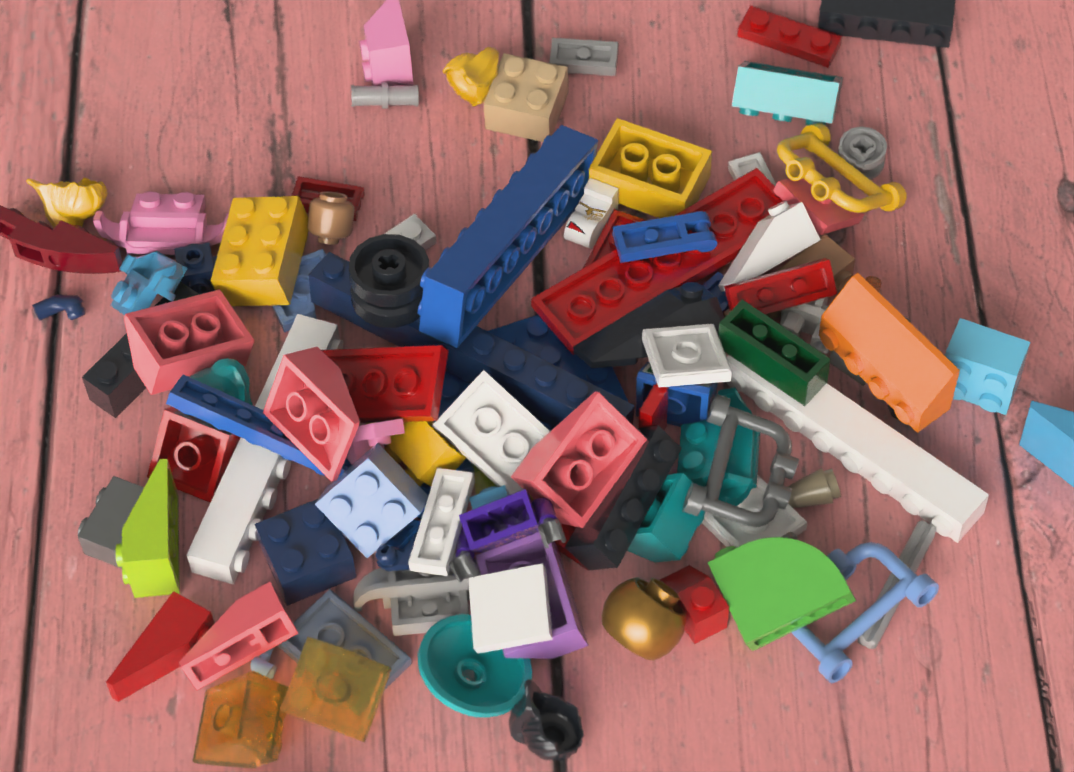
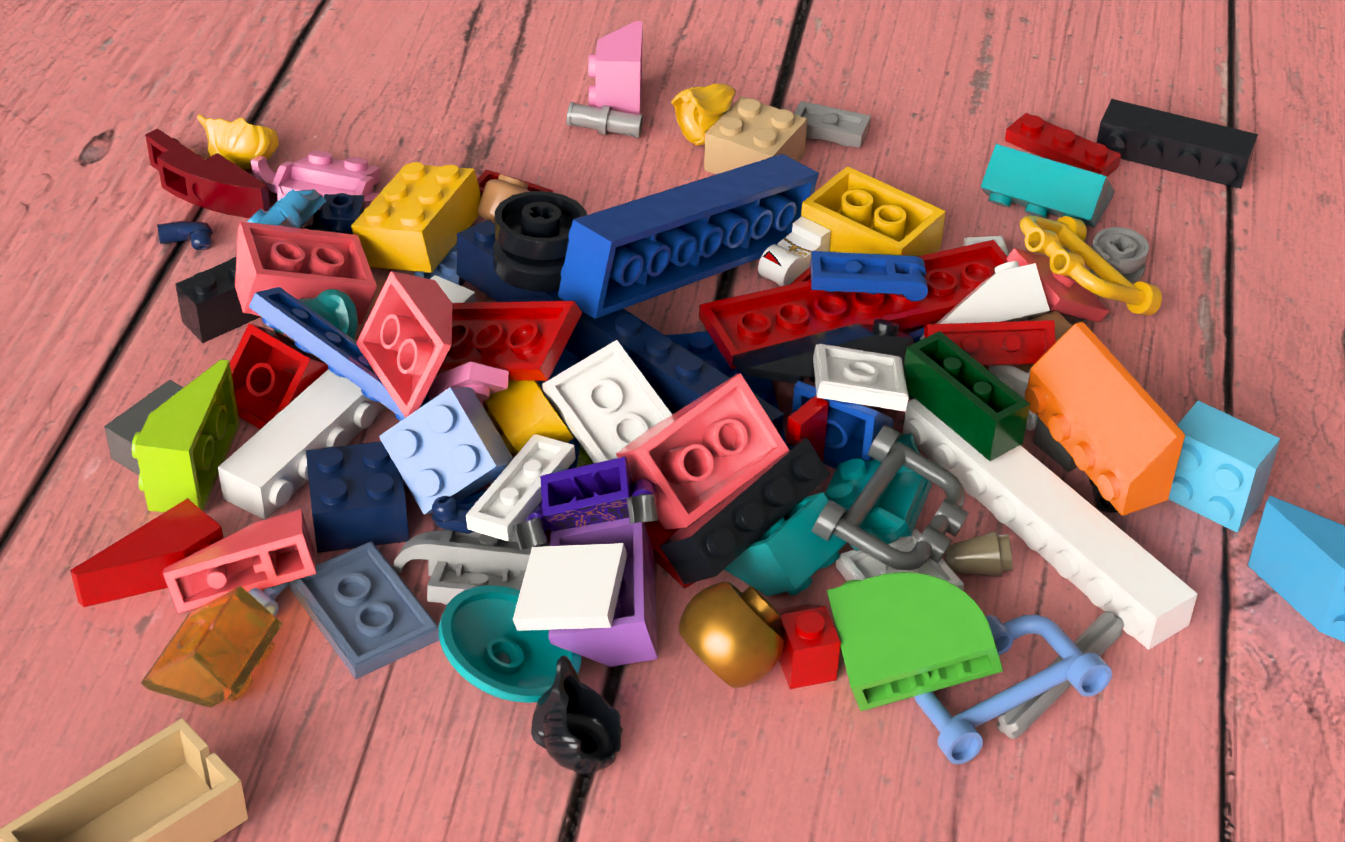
camera: 10 degrees right, 15 degrees down
(335, 689) = (333, 633): clear yellow slope -> none

